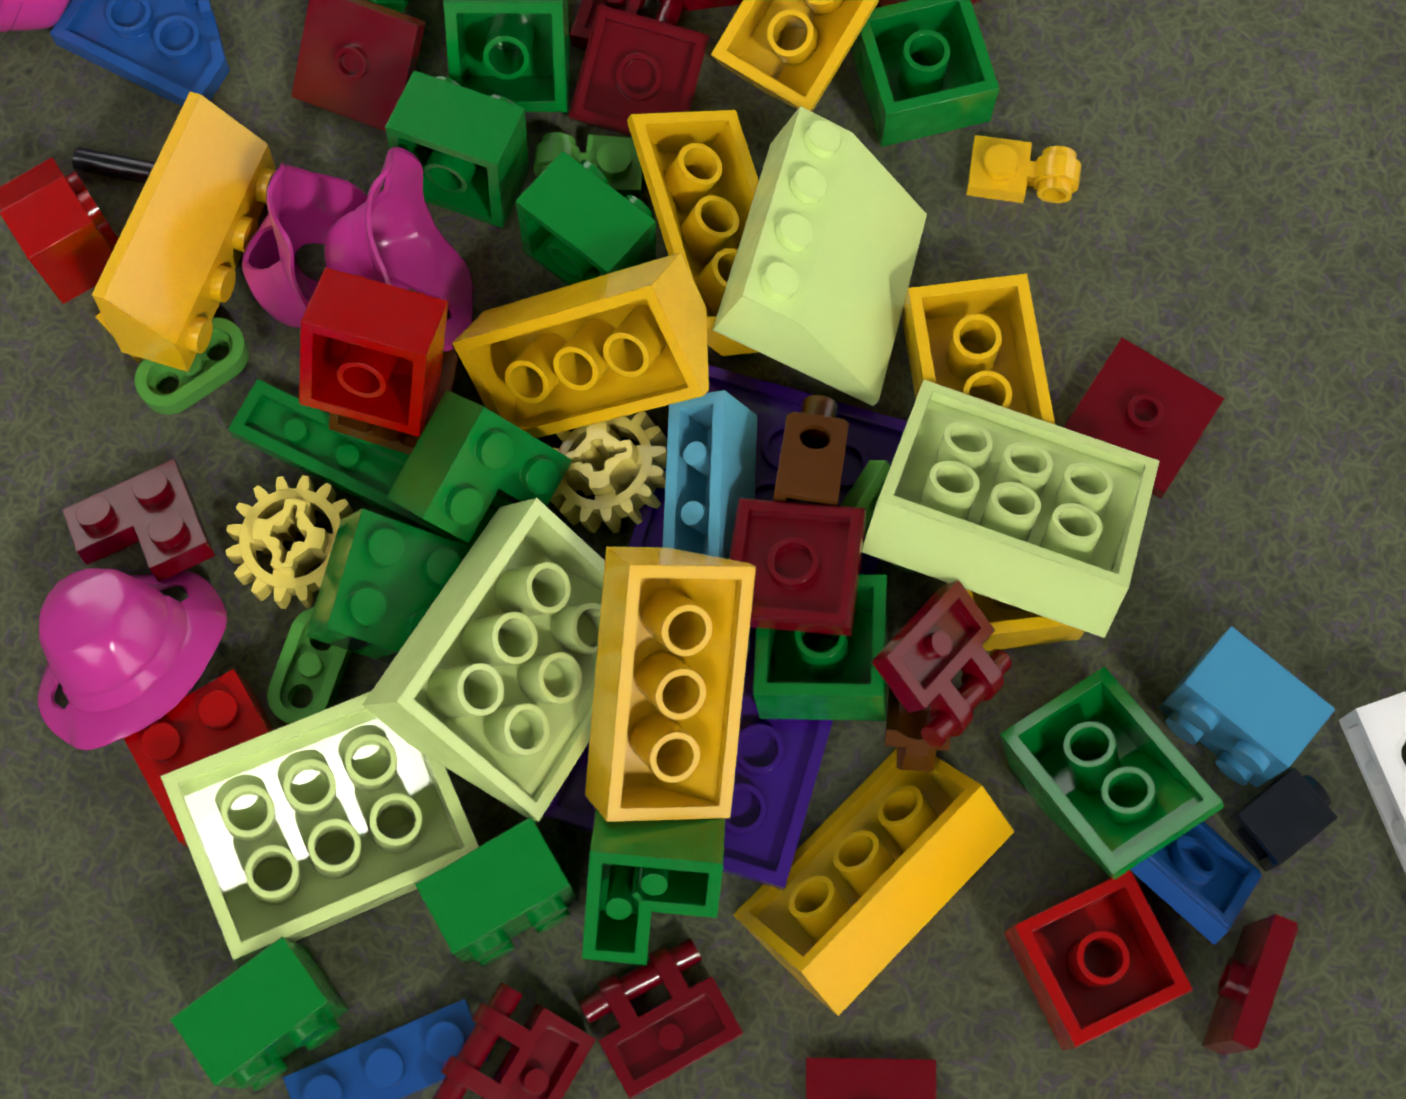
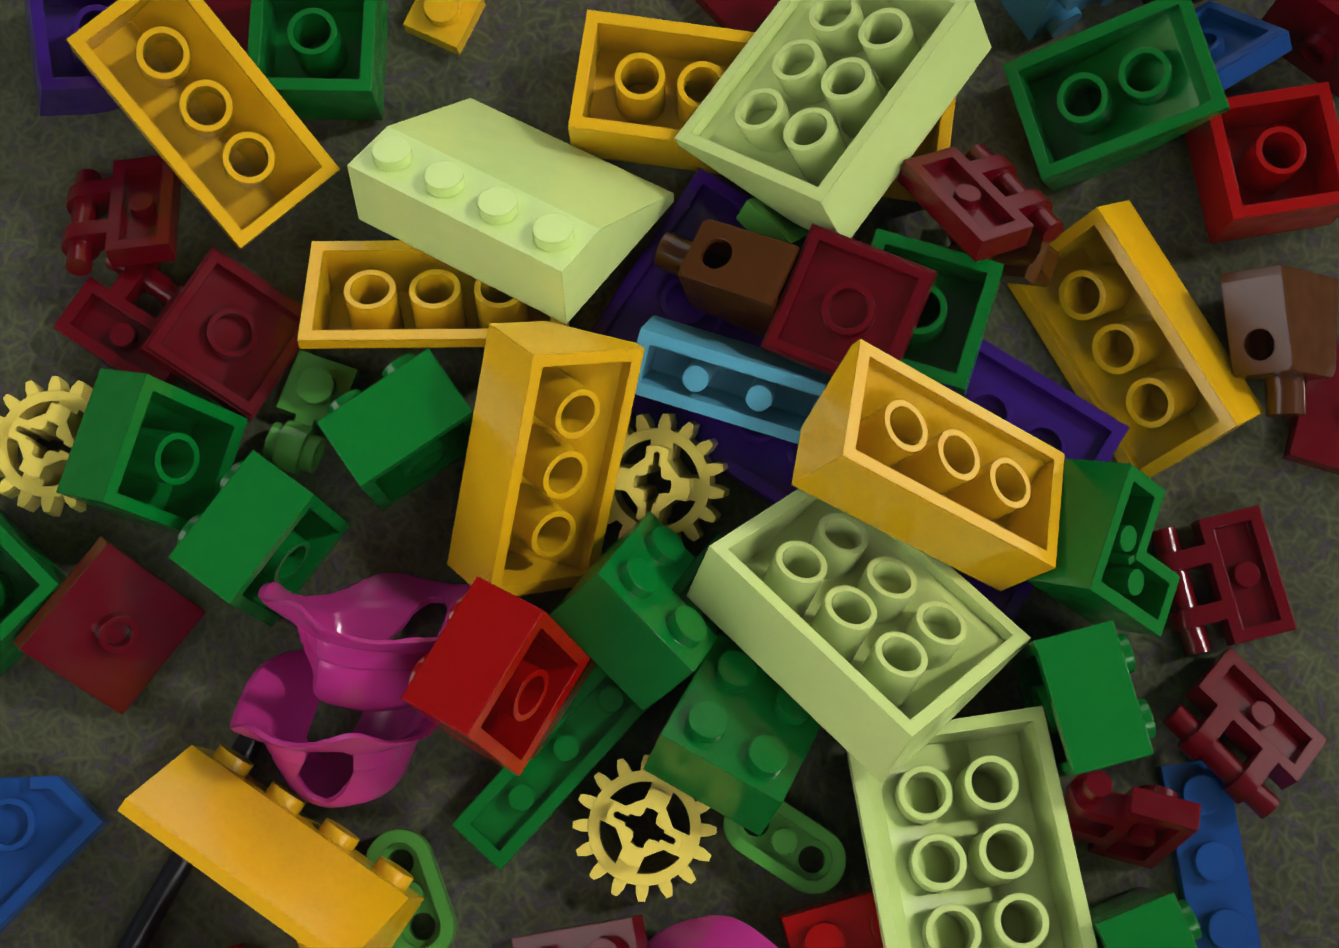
camera: 75 degrees left, 5 degrees up
(395, 969) = (1129, 827): none -> dark red plate
(921, 1010) = (1281, 331): none -> reddish brown torso

